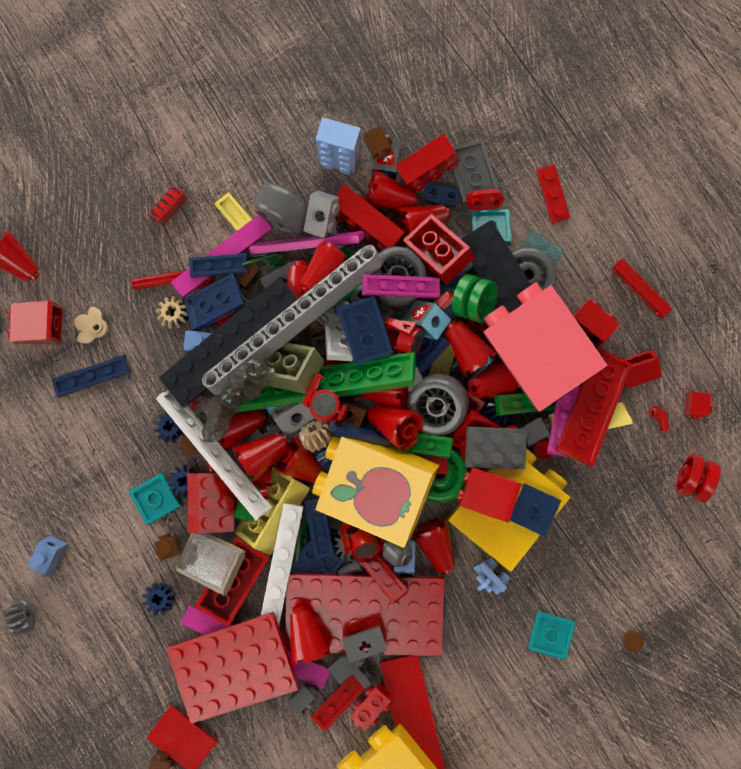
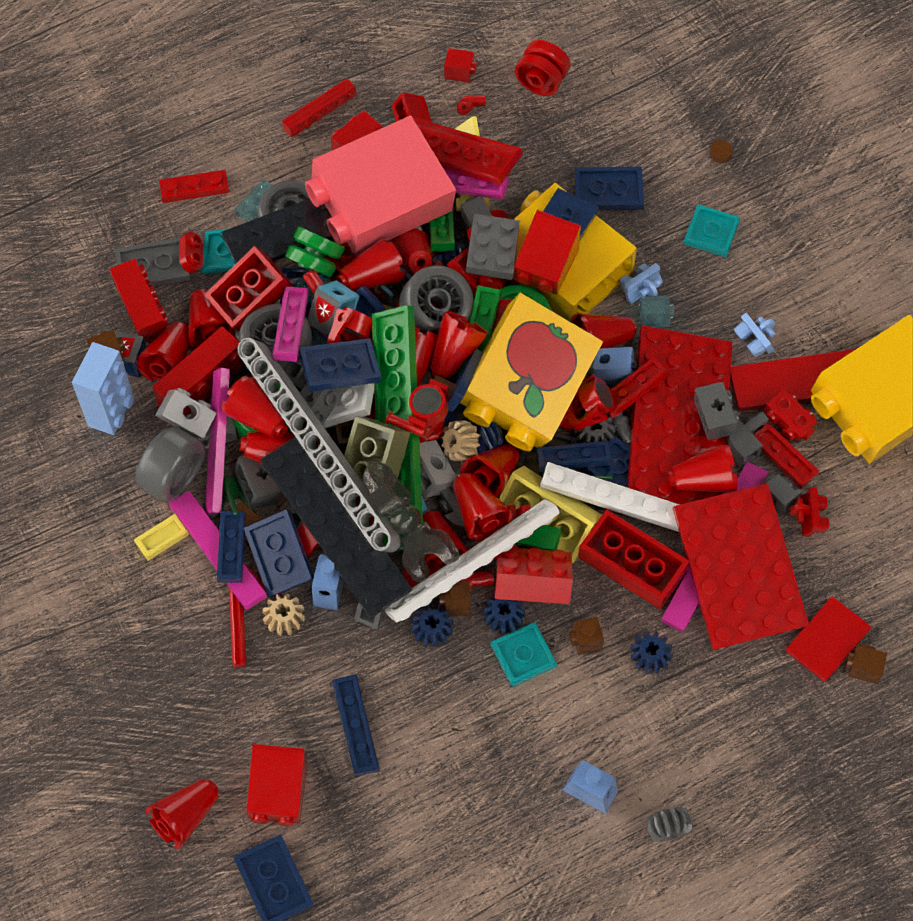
camera: 85 degrees left, 20 degrees down
(88, 326) = (287, 724): tan plate -> none
(168, 205) = (138, 613): red brick -> none
(210, 561) = (607, 578): clear piece -> none
(287, 723) = (807, 512): none -> red hips
(396, 554) = (608, 360): dark grey head -> none
(441, 195) = (177, 299): dark blue plate -> none
(441, 681) = (761, 343): none -> light blue hips
(463, 590) = (656, 311): none -> clear light blue brick
(583, 544) = (610, 187): none -> dark blue plate

